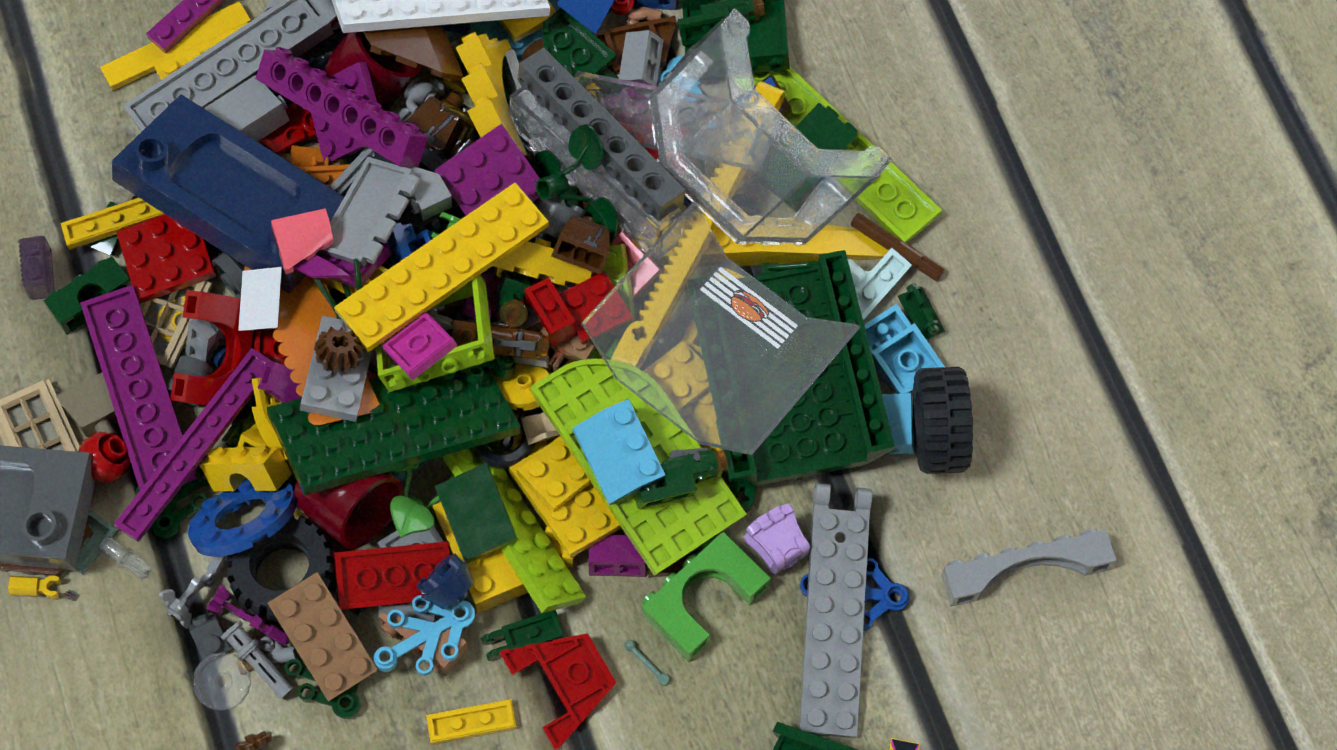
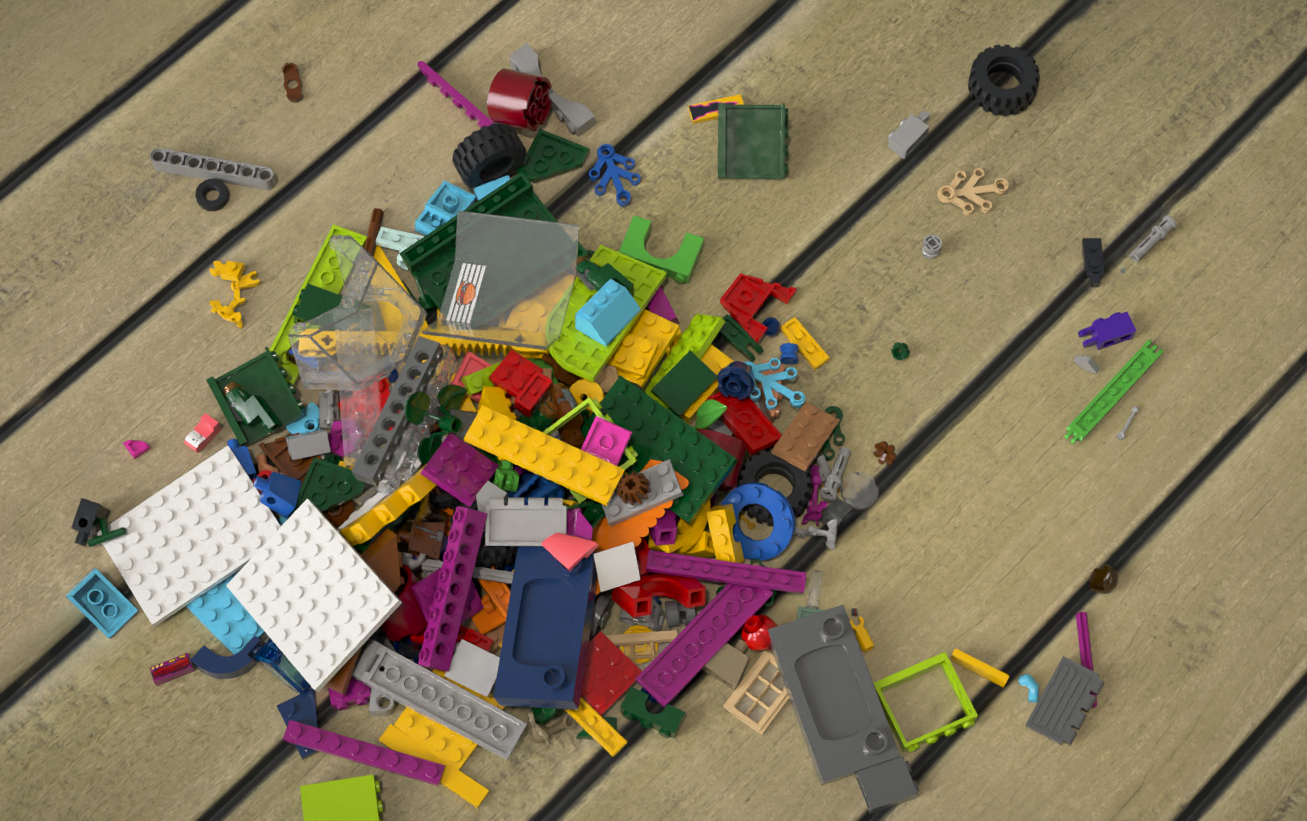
camera: 115 degrees left, 0 degrees up
(36, 267) = (651, 756): clear purple brick -> none
(463, 689) = (789, 353): none -> blue wheel
(516, 687) = (773, 325): none -> clear blue tile
(583, 244) = (478, 390): reddish brown torso -> none
(663, 679) = (722, 254): sand green hinge -> none
(777, 538) = (605, 223): lavender piece -> none
(834, 616) = (634, 176): light grey hinge -> none
(874, 49) = (227, 312): none -> yellow piece
(921, 311) = (410, 210): dark green hinge -> none
(921, 520) = (552, 156): none -> dark green plate
(933, 71) = (228, 271): none -> yellow plate
(1017, 499) = (519, 99): none -> dark red brick
(1050, 108) = (212, 184): none -> black tyre
(1054, 444) = (458, 99): none -> magenta hinge
(1086, 115) = (206, 163): none -> light grey beam
(1204, 253) = (290, 73): none -> reddish brown piece

